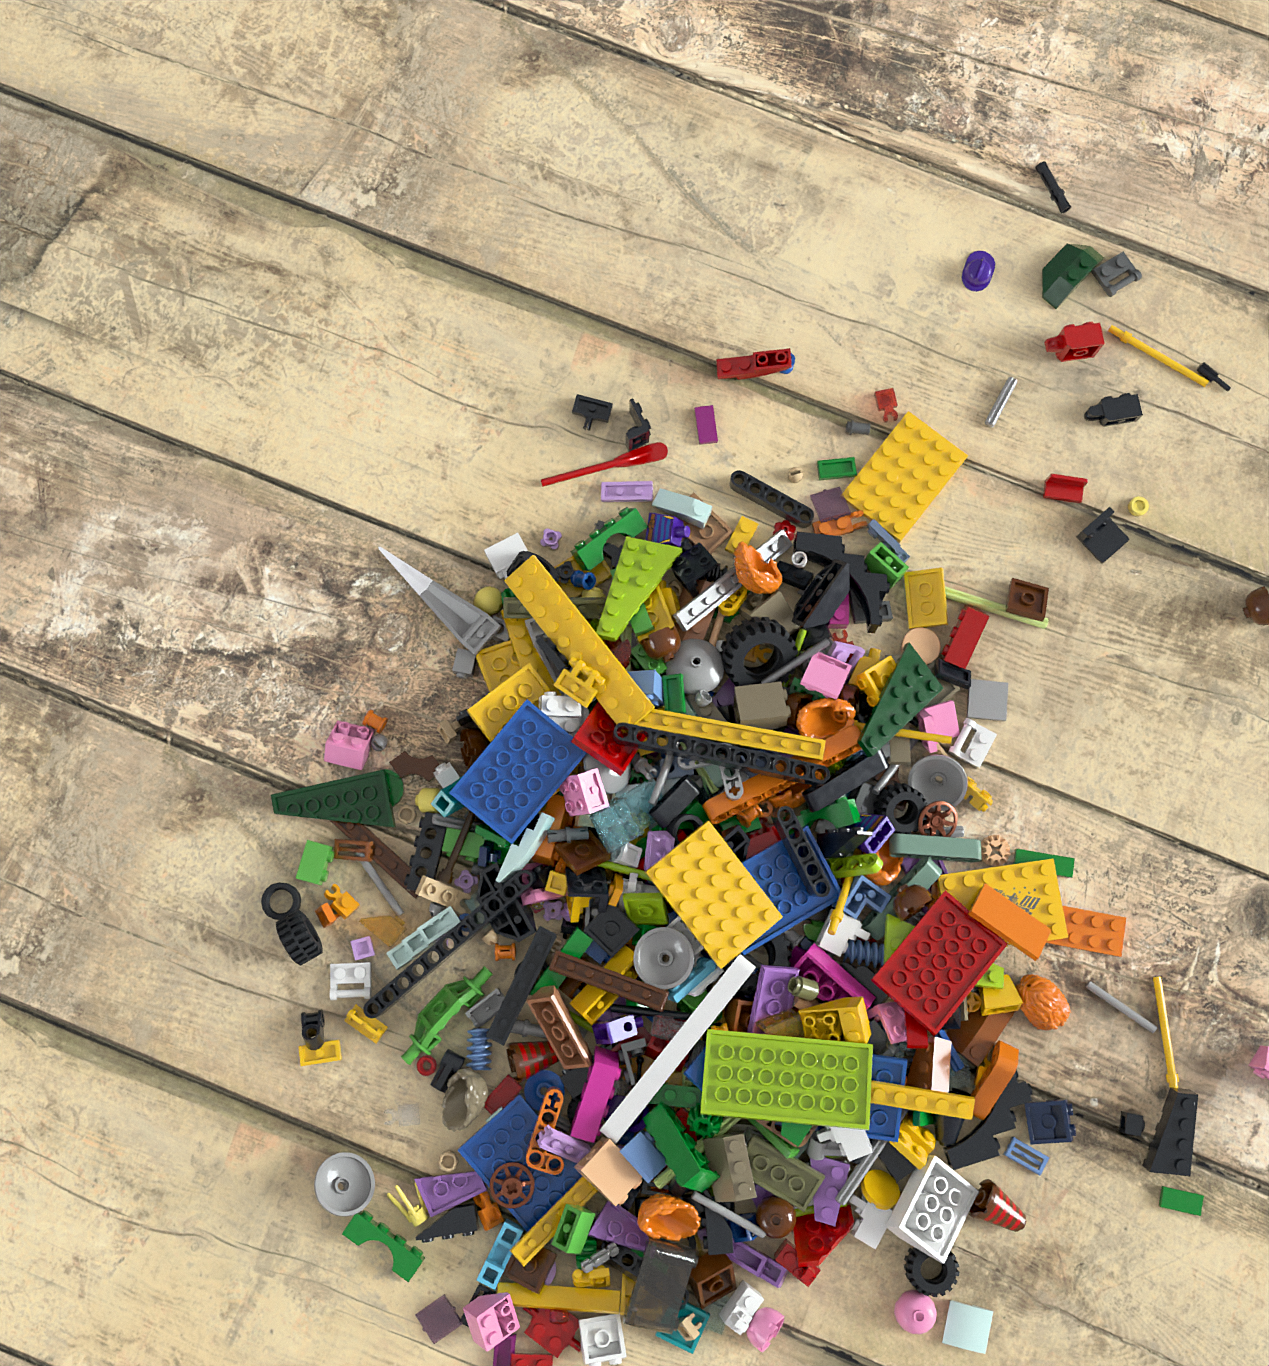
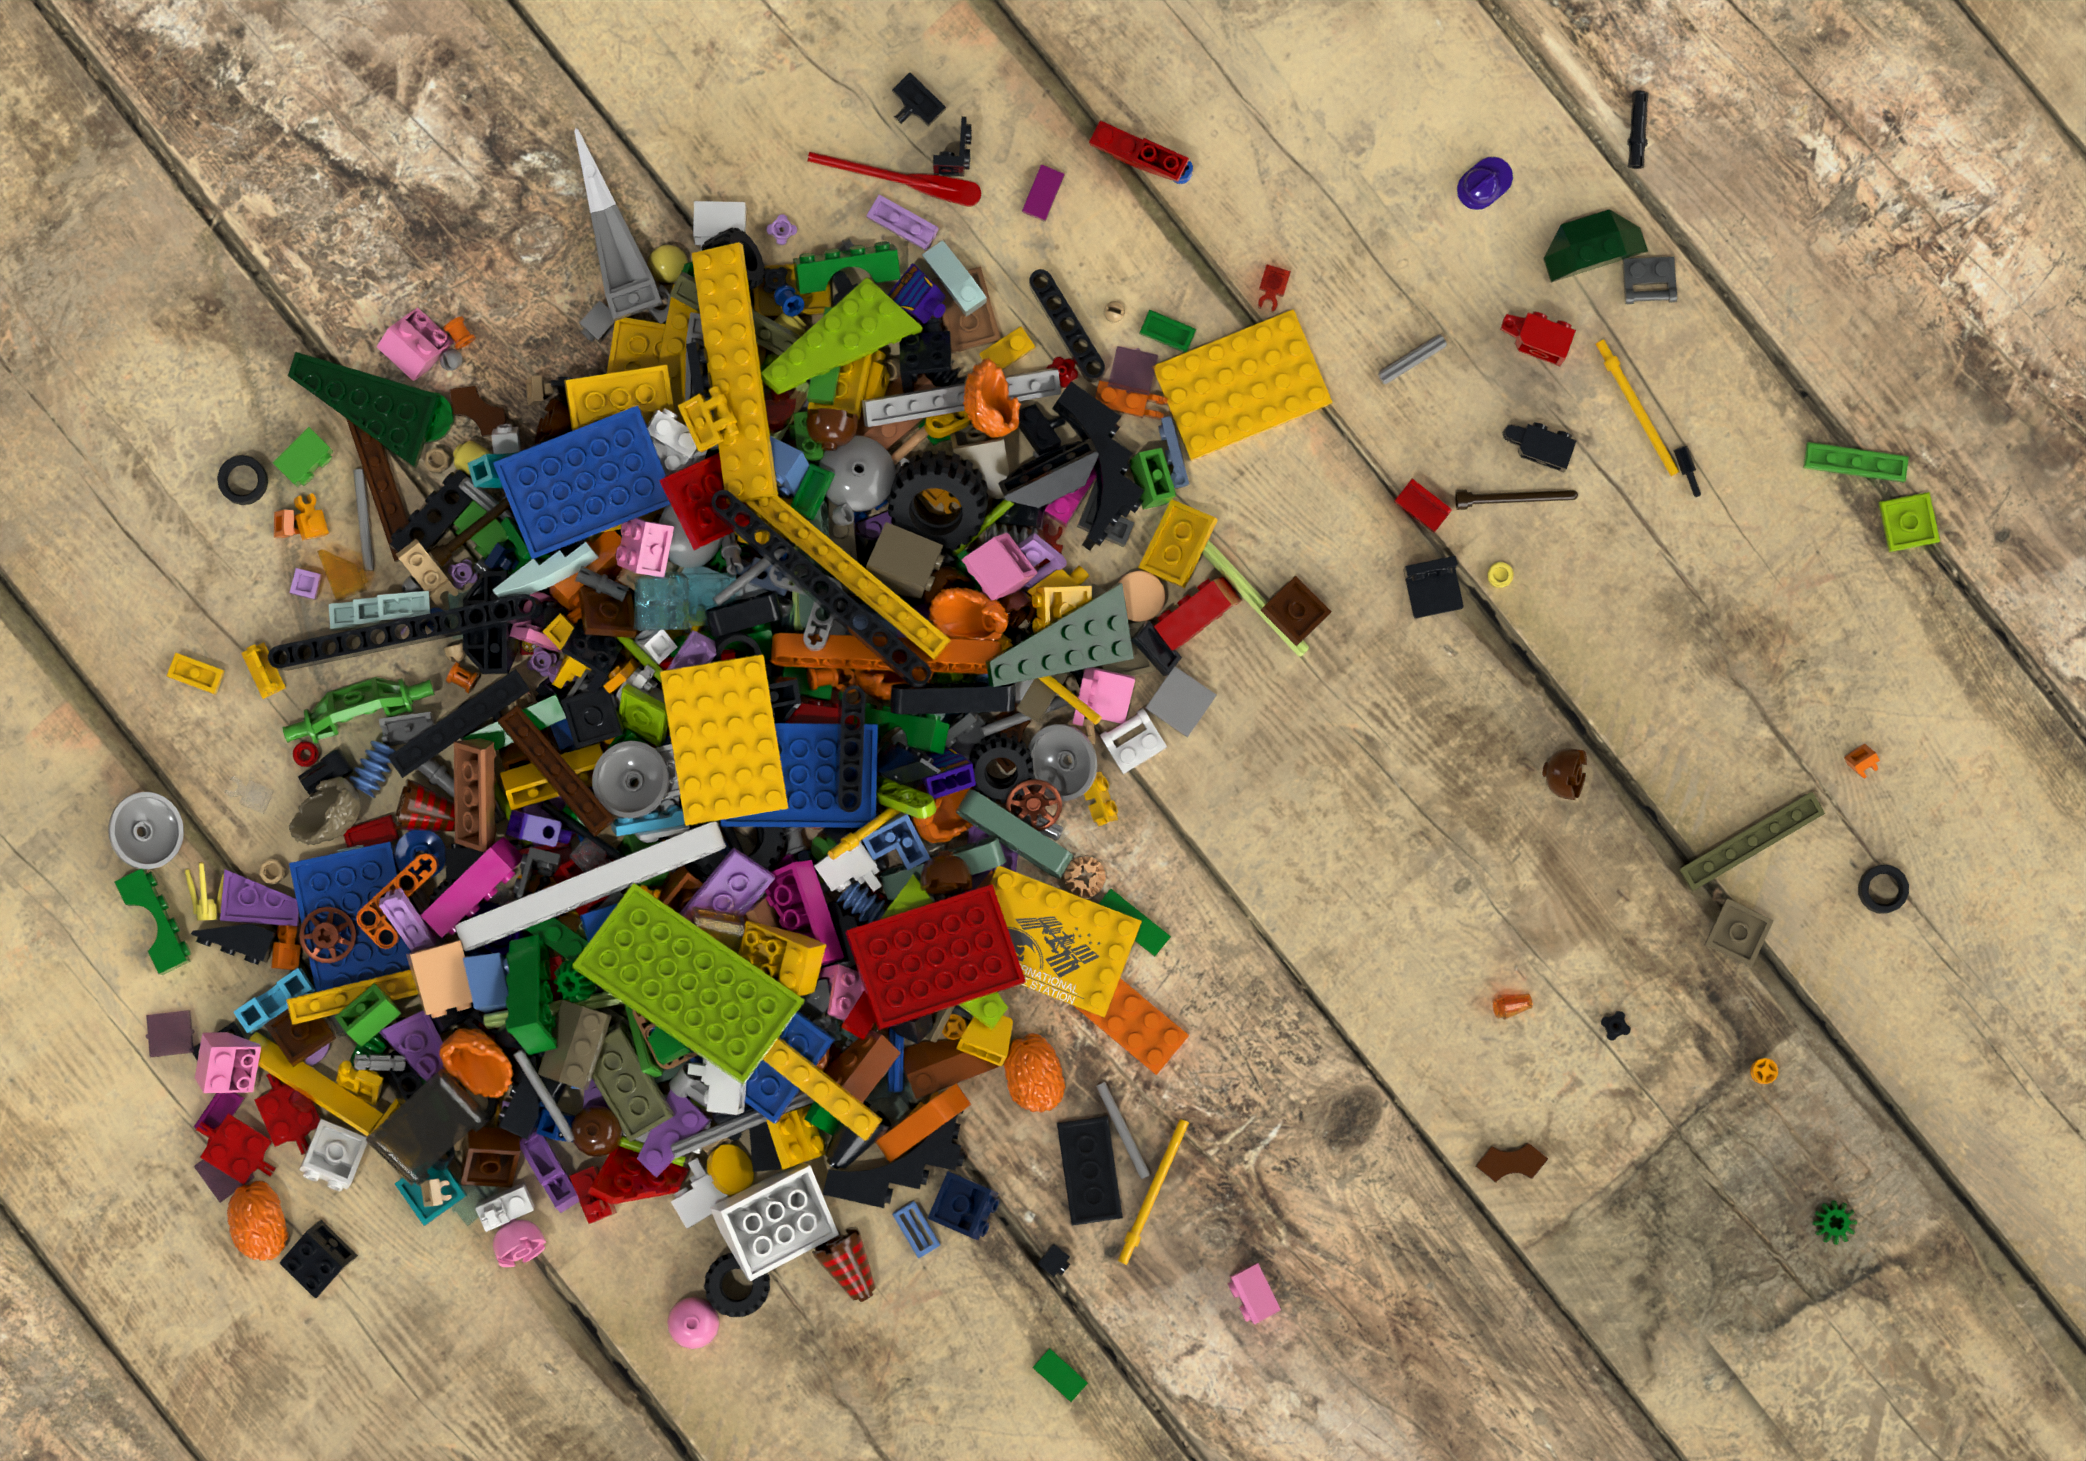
camera: 30 degrees right, 5 degrees up
(299, 937) = (241, 532): black tyre -> none
(313, 1025) = (202, 643): black piece -> none
(350, 973) = (276, 605): white plate -> none
(367, 850) = (369, 477): dark orange tile -> none
(796, 558) = (1053, 412): white hinge -> none
(797, 661) = (979, 532): flat silver bar -> none
(803, 988) = (766, 899): olive brick -> none
(857, 427) = (1221, 296): dark grey pin -> none
(967, 1327) = (741, 1370): light aqua slope -> none
(1010, 922) = (1044, 960): orange tile -> none
(1088, 470) = (1466, 499): none -> dark brown piece
(1115, 1047) = (1089, 1170): none -> black tile
(1174, 1136) = (1087, 1303): black wedge -> none

